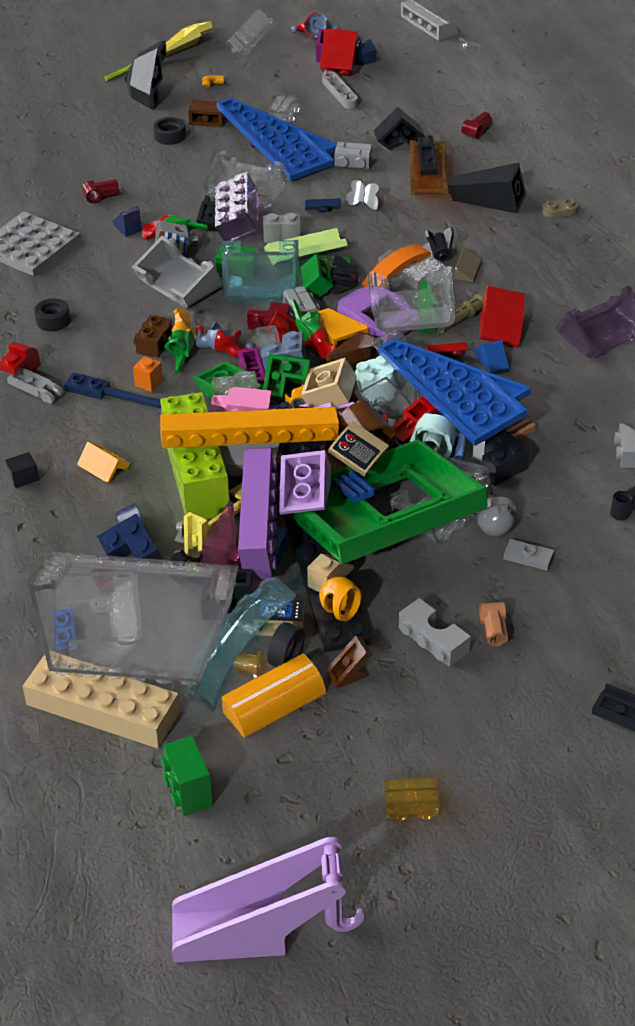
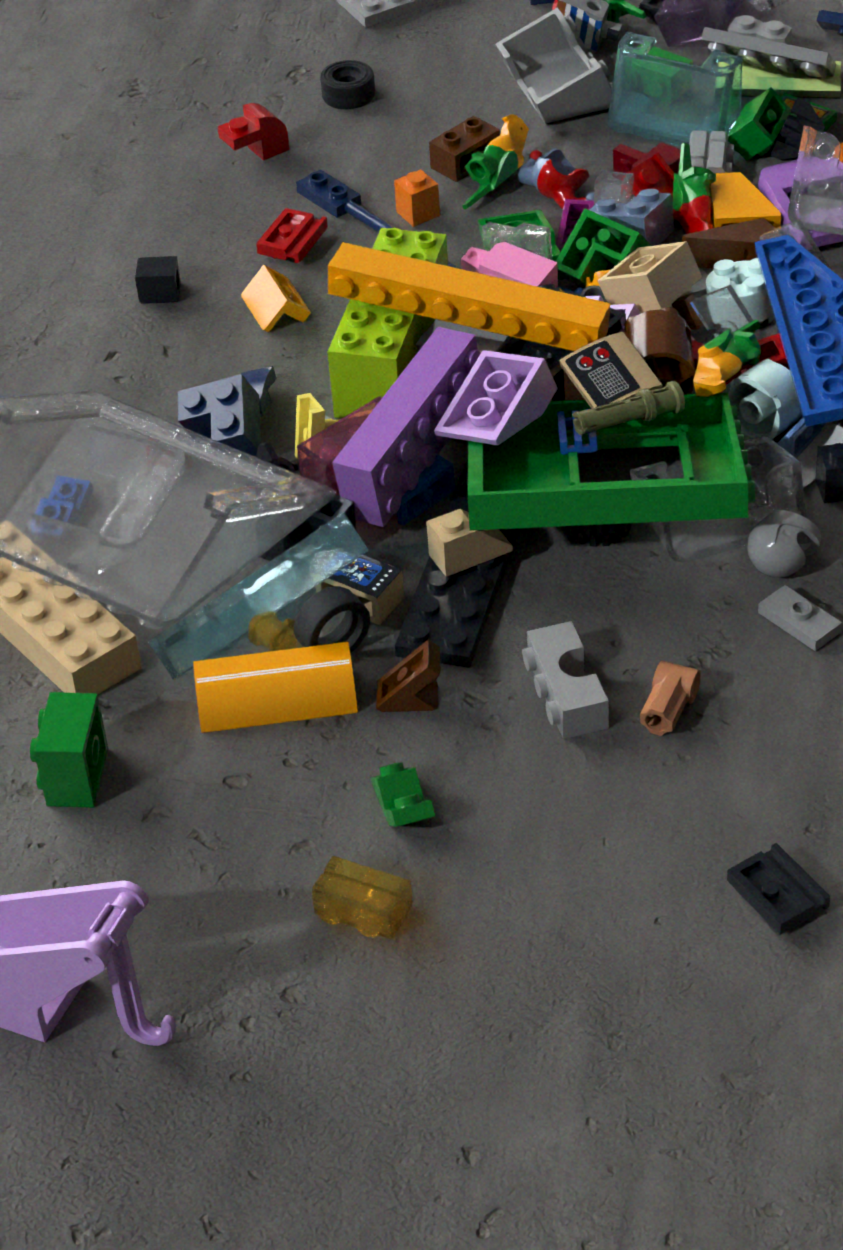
camera: 30 degrees right, 0 degrees up
(35, 385) = (257, 172): light grey hinge -> none
(85, 418) = (291, 235): none -> red plate
(310, 234) = (759, 51): none -> light grey piece
(339, 595) = (451, 577): light orange helmet -> none
(388, 460) = (643, 406): none -> olive pin
(388, 733) = (401, 795): none -> green slope
(405, 420) = (725, 357): none -> animal

